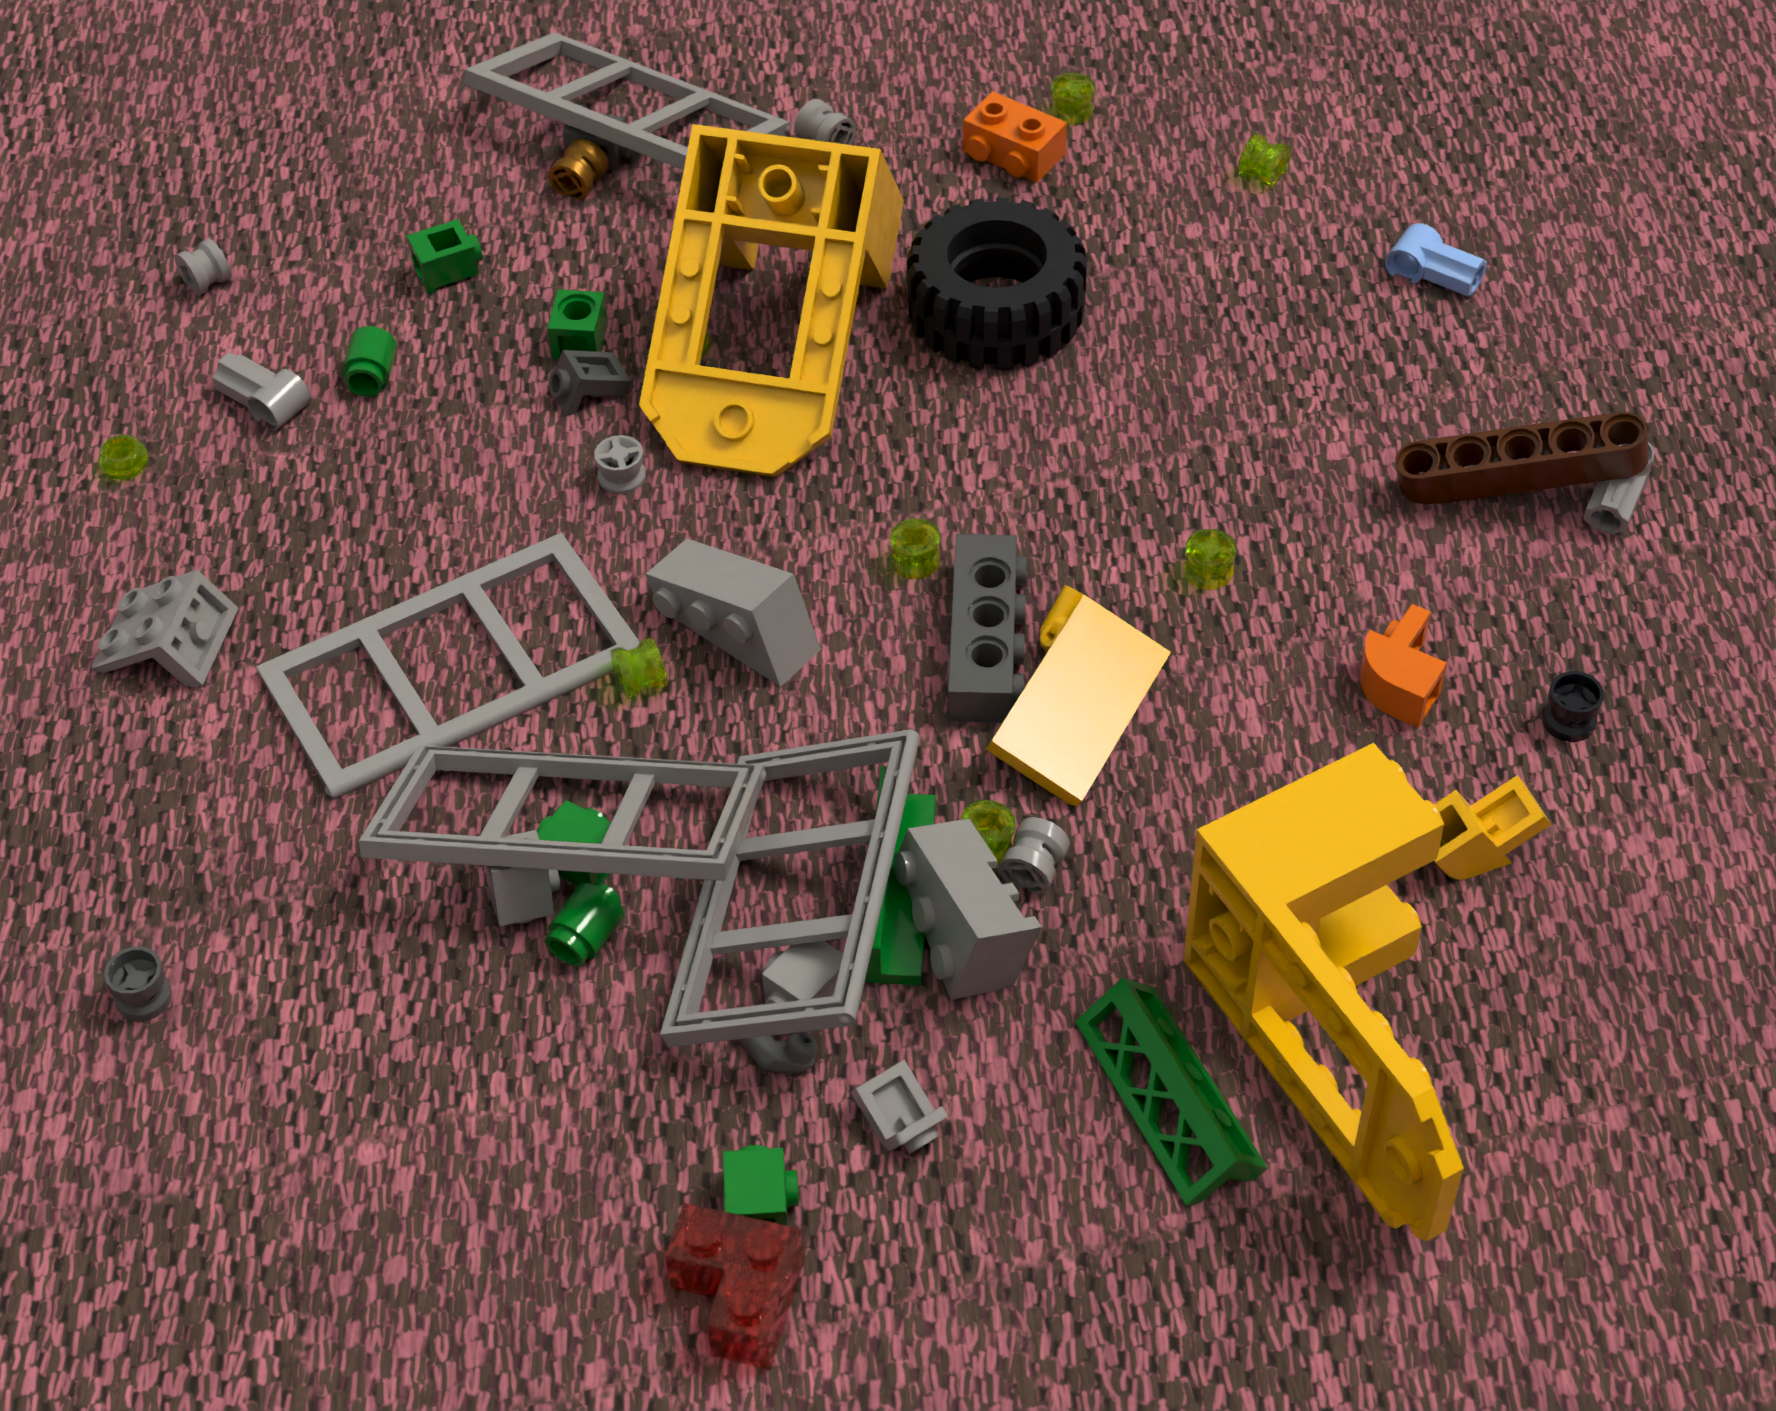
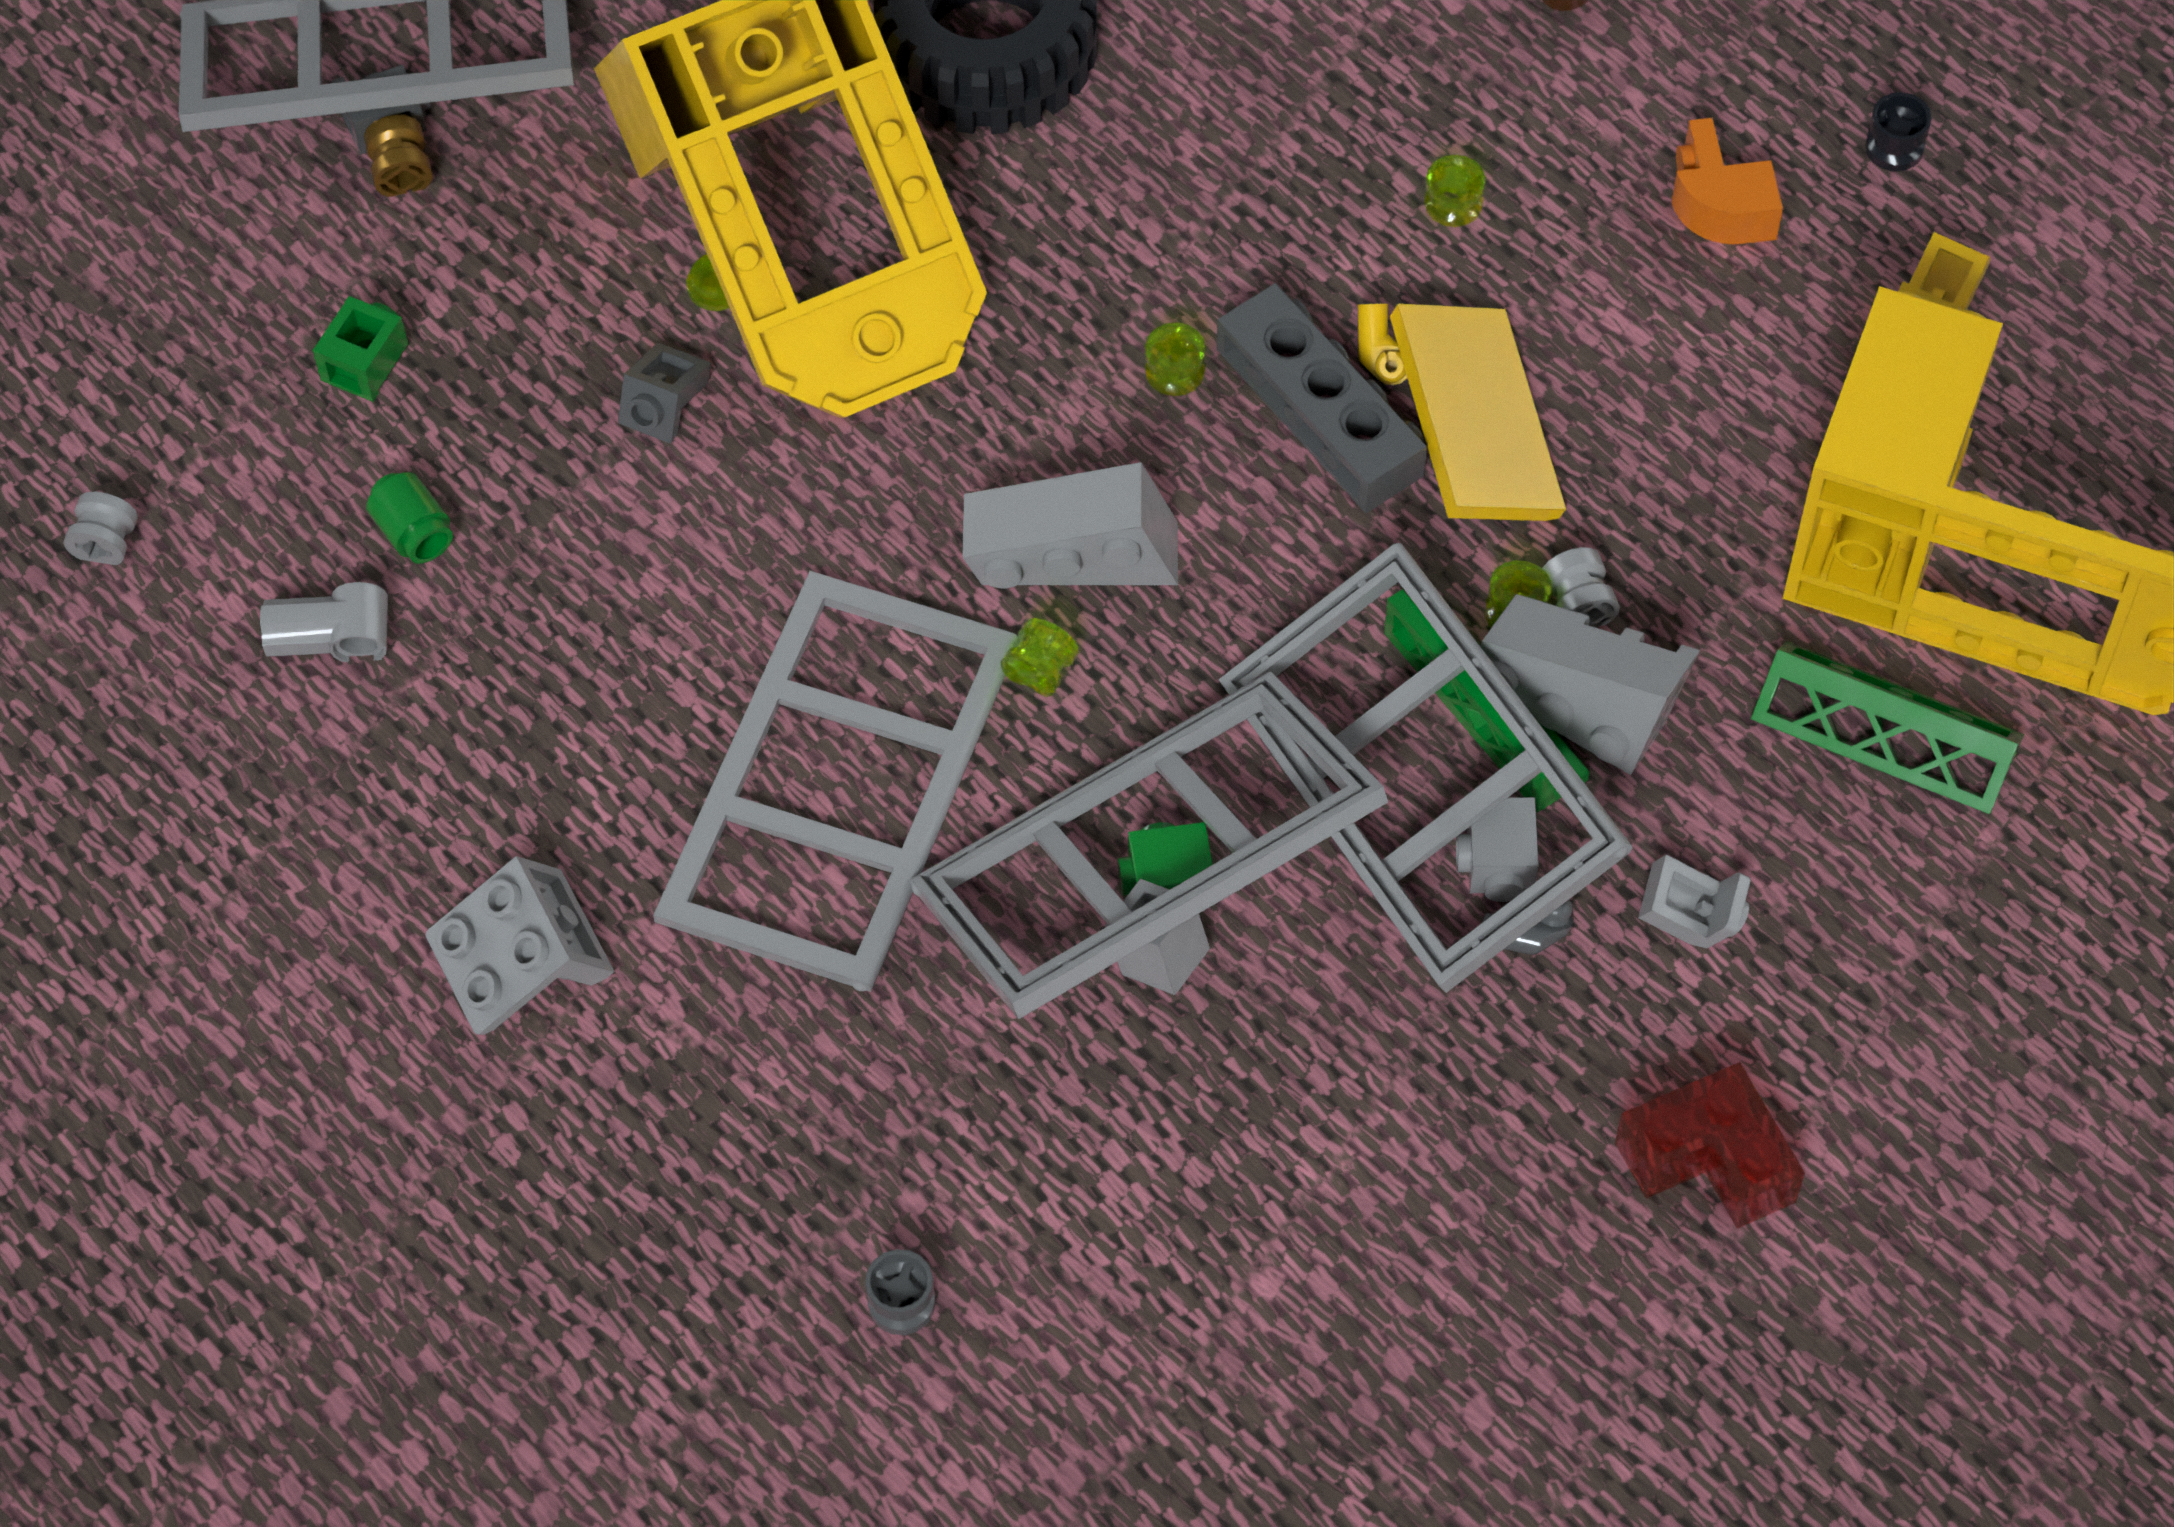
camera: 40 degrees left, 10 degrees up
(123, 457) = (255, 797): clear neon green plate -> none
(577, 322) = (597, 355): green brick -> none
(584, 923) = (1250, 937): green brick -> none
(625, 454) = (793, 445): light grey wheel -> none
(759, 1184) = (1648, 1057): green brick -> none

